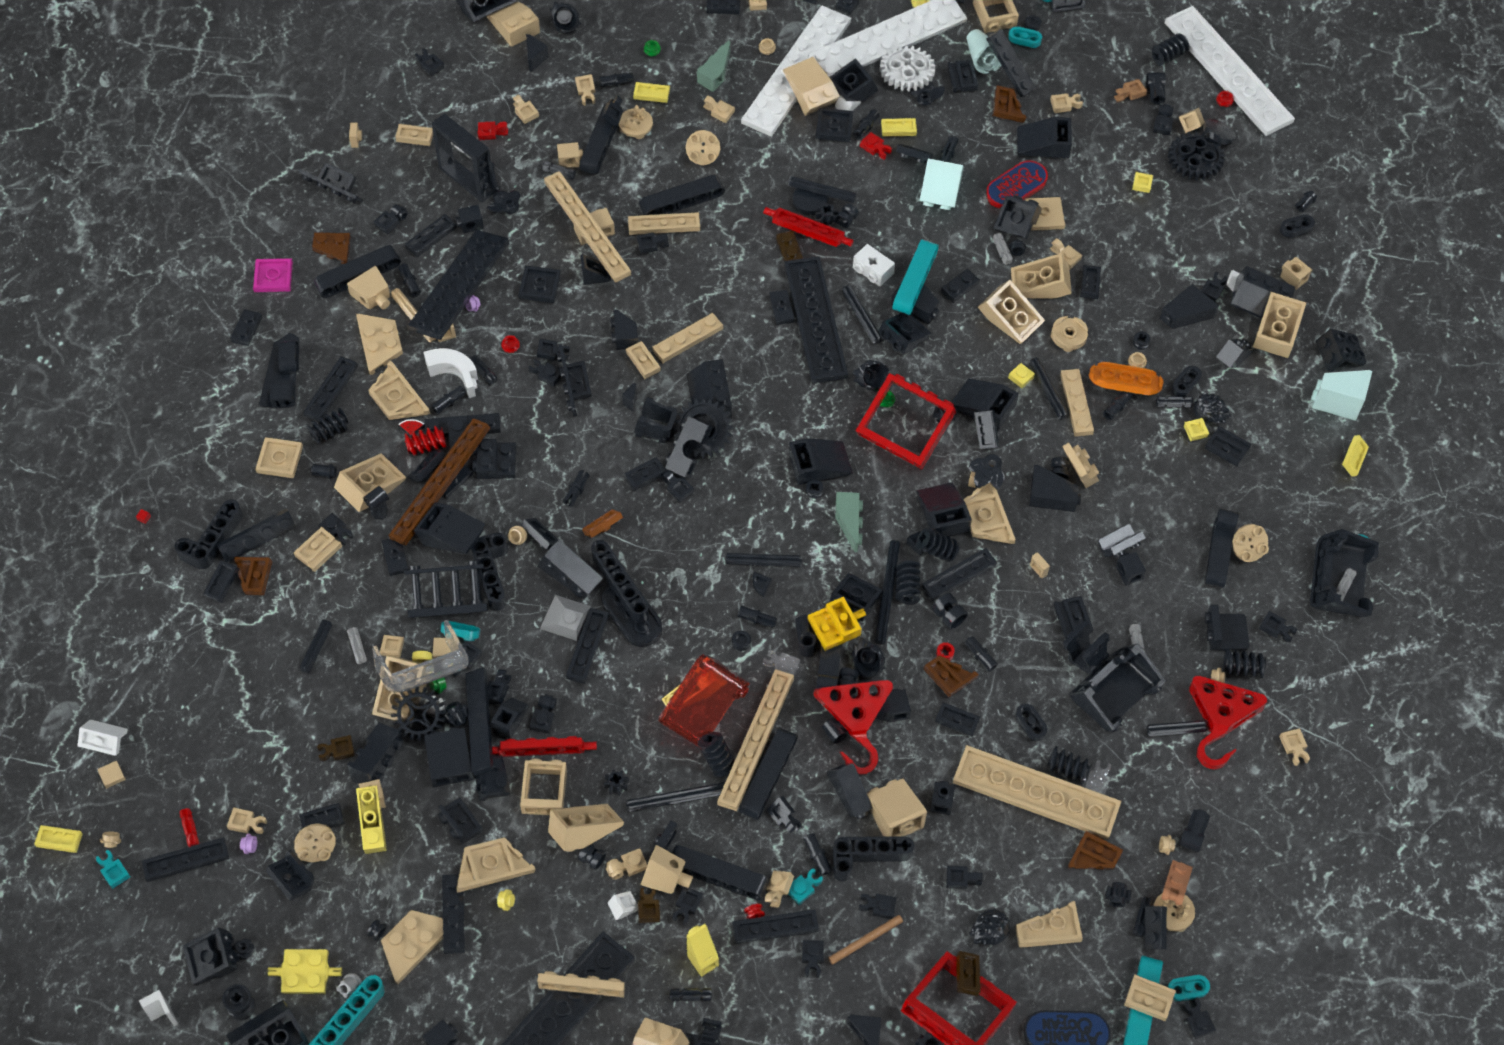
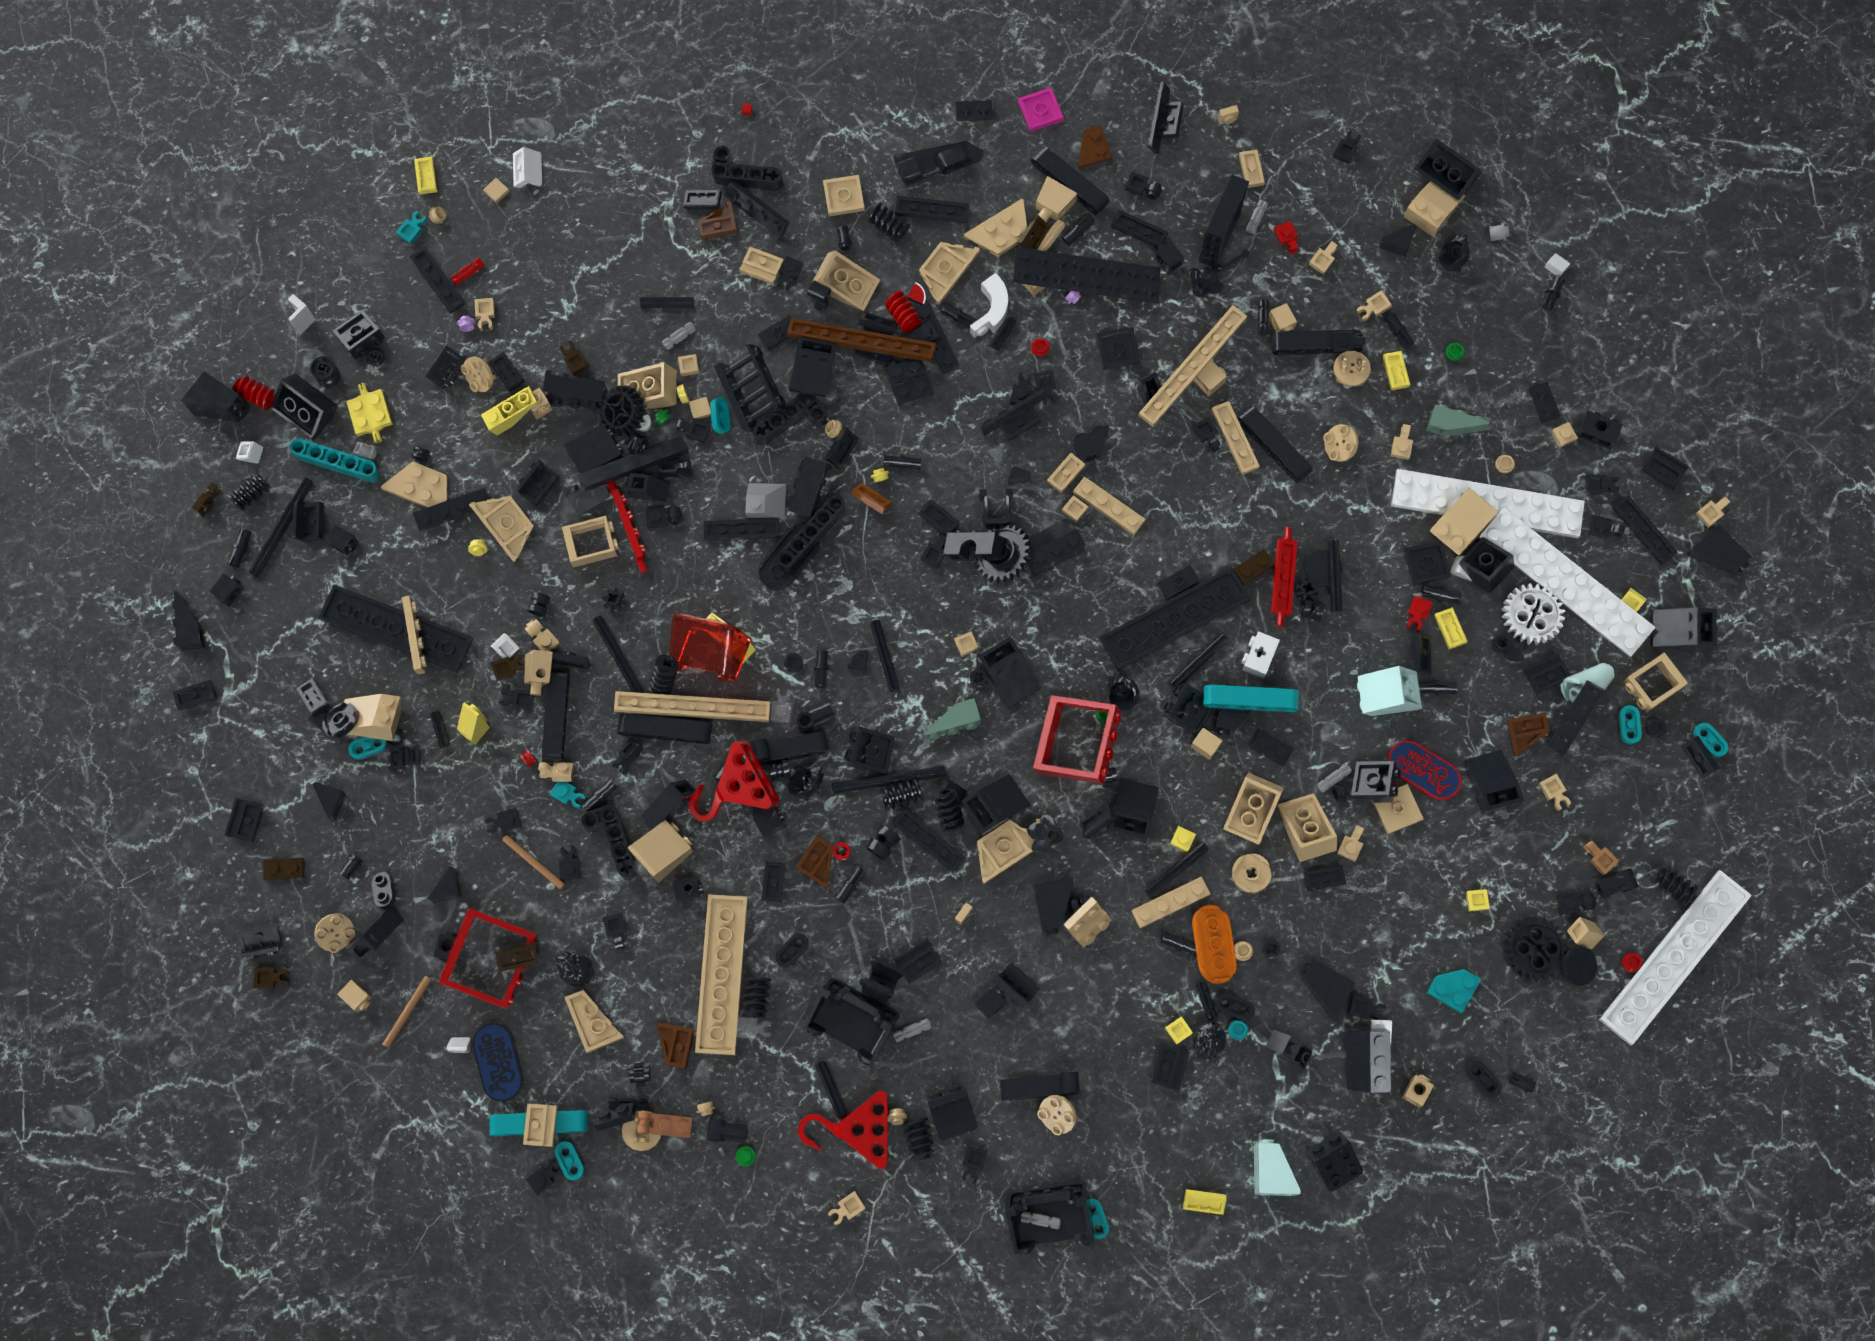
camera: 75 degrees right, 15 degrees up
(397, 312) = (1034, 233): none -> dark brown plate
(427, 671) = (635, 384): clear windscreen -> none
(582, 509) = (880, 475): none -> light yellow plate
(582, 825) = (561, 586): tan slope -> none
(680, 363) = (1075, 509): none -> tan plate
(775, 926) = (520, 780): black plate -> none
(776, 489) = (966, 644): none -> tan tile
(836, 623) = (826, 739): yellow plate -> none
(943, 328) = (1206, 744): none -> tan panel
(1207, 384) = (1238, 1029): none -> teal plate
(1213, 223) = (1454, 989): none -> teal plate
(1223, 822) = (745, 1156): none -> green plate
(1279, 325) = (1337, 1086): tan slope -> none

